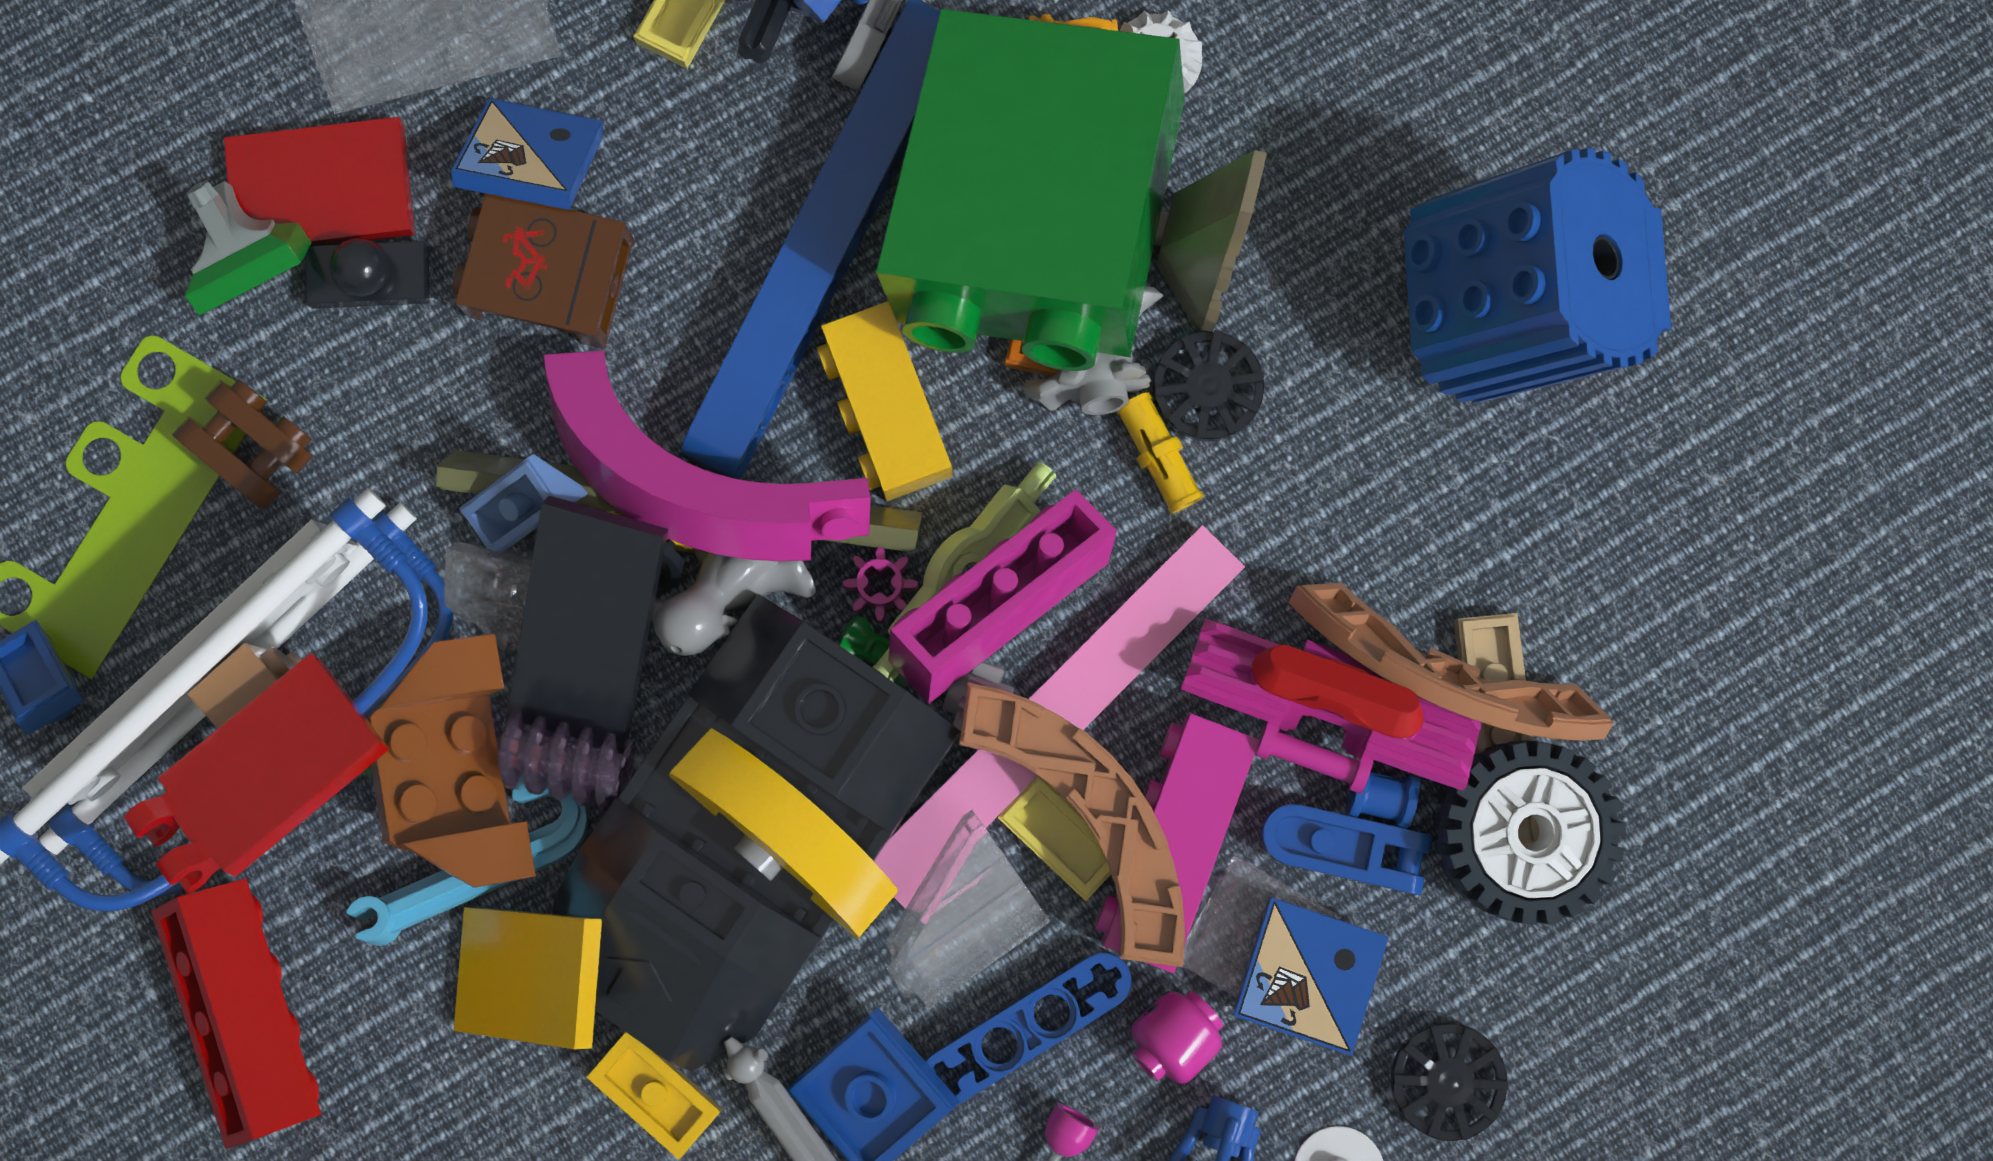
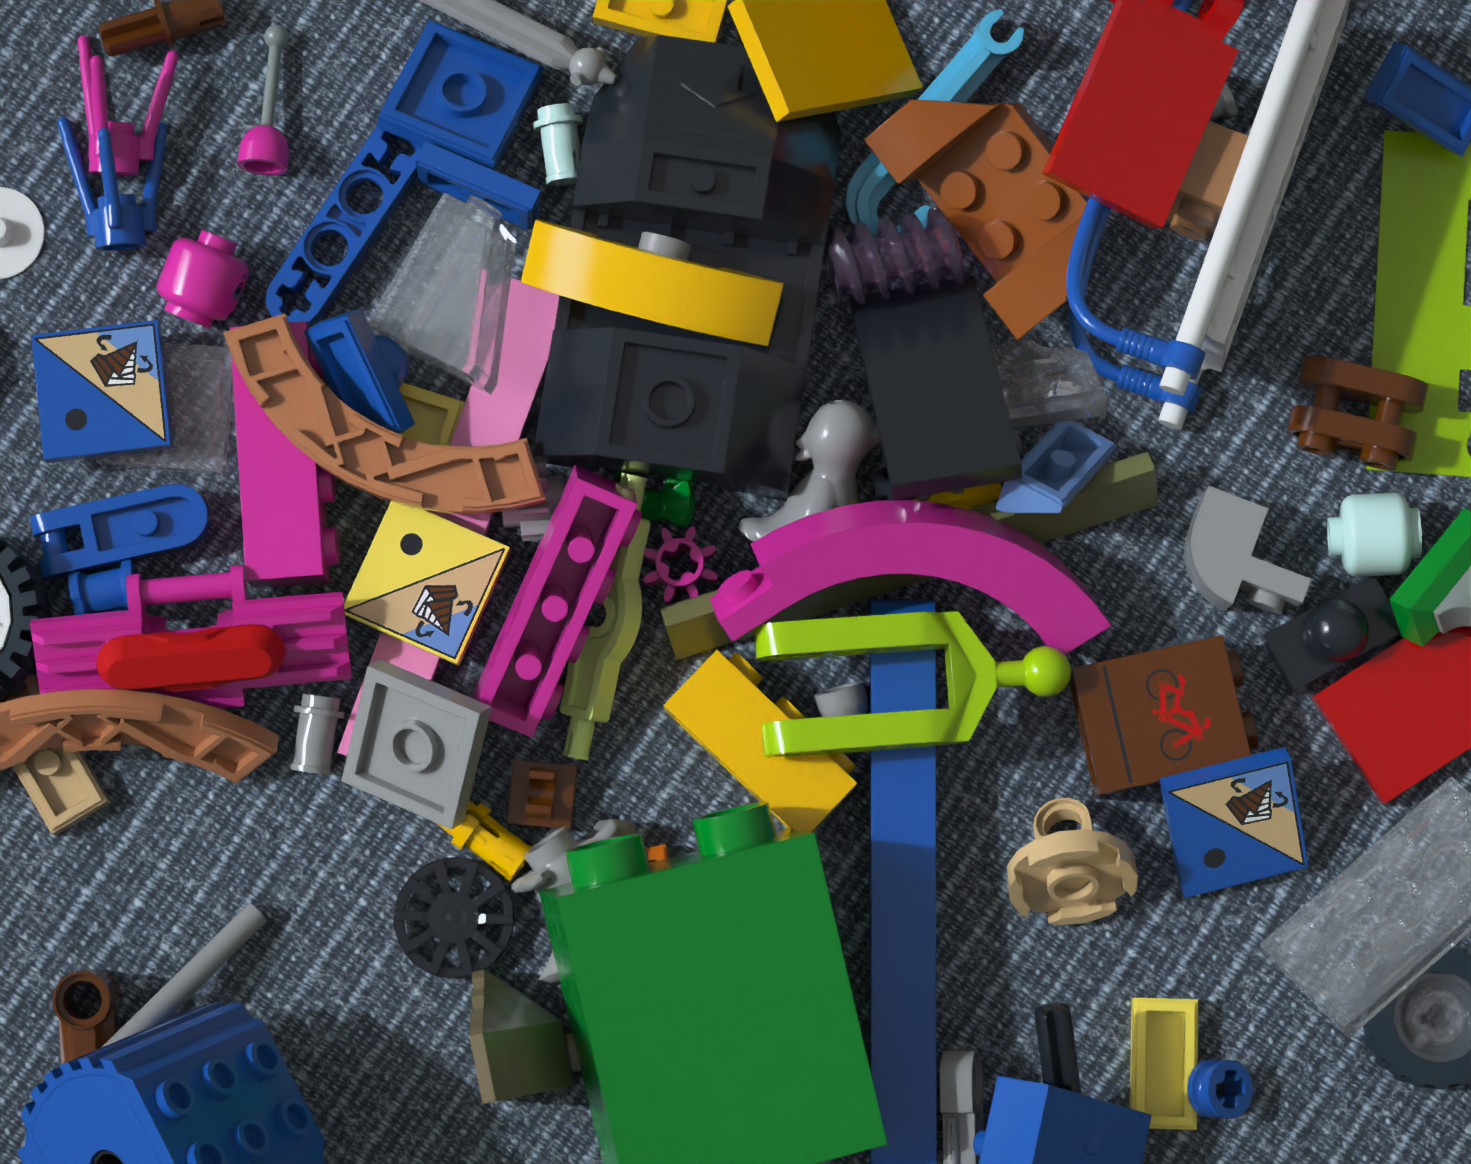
camera: 160 degrees right, 0 degrees up
(285, 331) = (1375, 534): none -> light aqua head
(422, 379) = (1221, 561): none -> light grey brick
(680, 174) = (1070, 872): none -> tan tile
(685, 357) = (969, 673): none -> lime piece
(800, 407) = (843, 700): none -> light grey hinge
(804, 1010) = (559, 142): none -> light aqua pin
(900, 1012) = (461, 177): none -> blue tile
(1073, 878) = (363, 368): none -> blue tile
(1088, 452) = (542, 794): none -> reddish brown tile
(1103, 670) = (426, 581): none -> tile
(1176, 530) = (416, 744): none -> light grey tile
(1255, 591) = (316, 733): none -> light grey pin
(1478, 424) = (195, 972): none -> light grey bar
(1558, 427) = (79, 1032): none -> reddish brown piece

